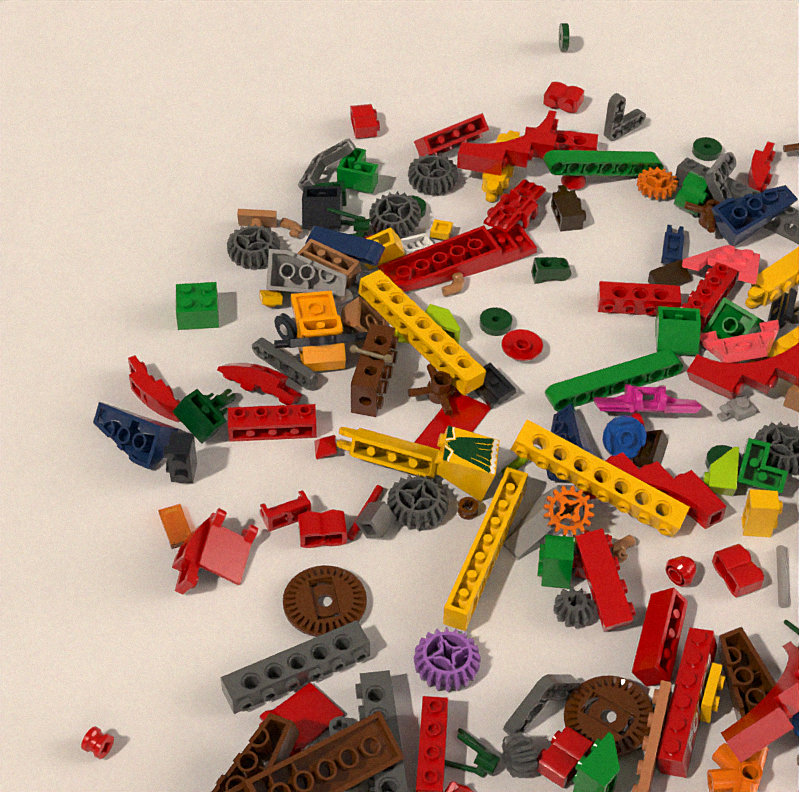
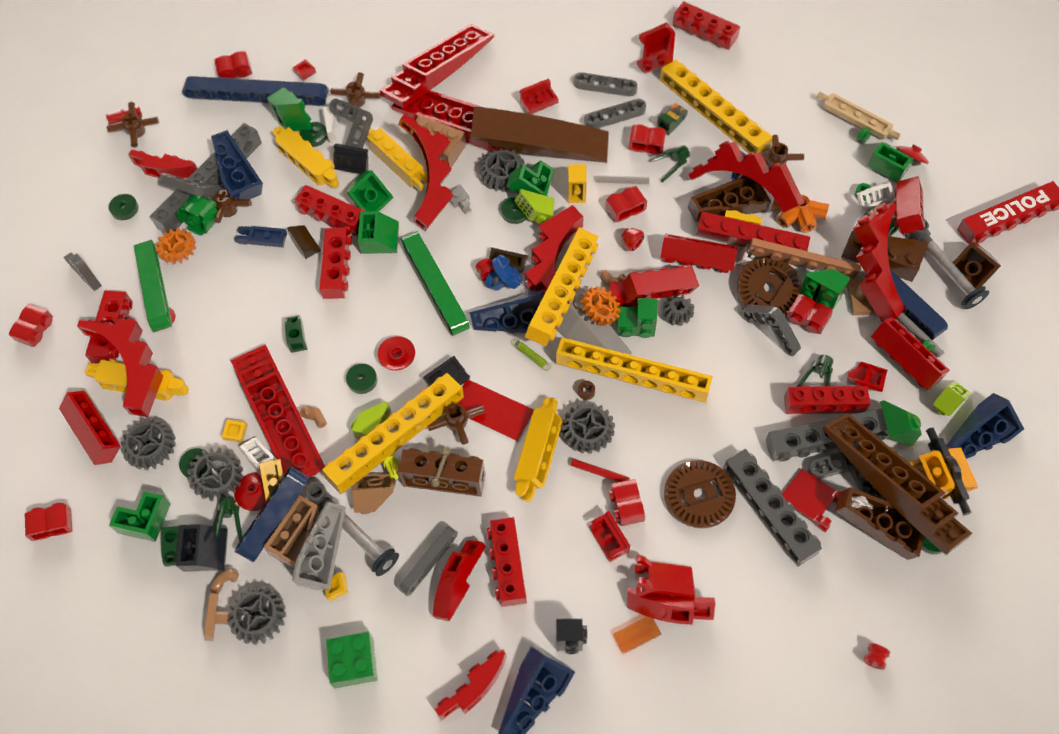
camera: 90 degrees left, 15 degrees up
(202, 415) = (507, 625): dark green brick -> none
(319, 332) = (399, 524): light orange piece -> none
(324, 159) = (121, 554): dark grey beam -> none
(325, 446) = (530, 511): red slope -> none
(375, 519) = (614, 457): dark grey brick -> none
(439, 669) = (745, 388): medium lavender gear -> none
(467, 460) = (553, 380): yellow slope -> none
(515, 207) = (219, 360): red piece -> none
(519, 754) = (819, 340): dark grey gear -> none
(567, 209) = (208, 320): dark brown hinge -> none
(633, 401) = (467, 258): dark pink piece -> none
(742, 260) = (287, 187): coral wing -> none
(742, 347) = (405, 183): coral wing -> none

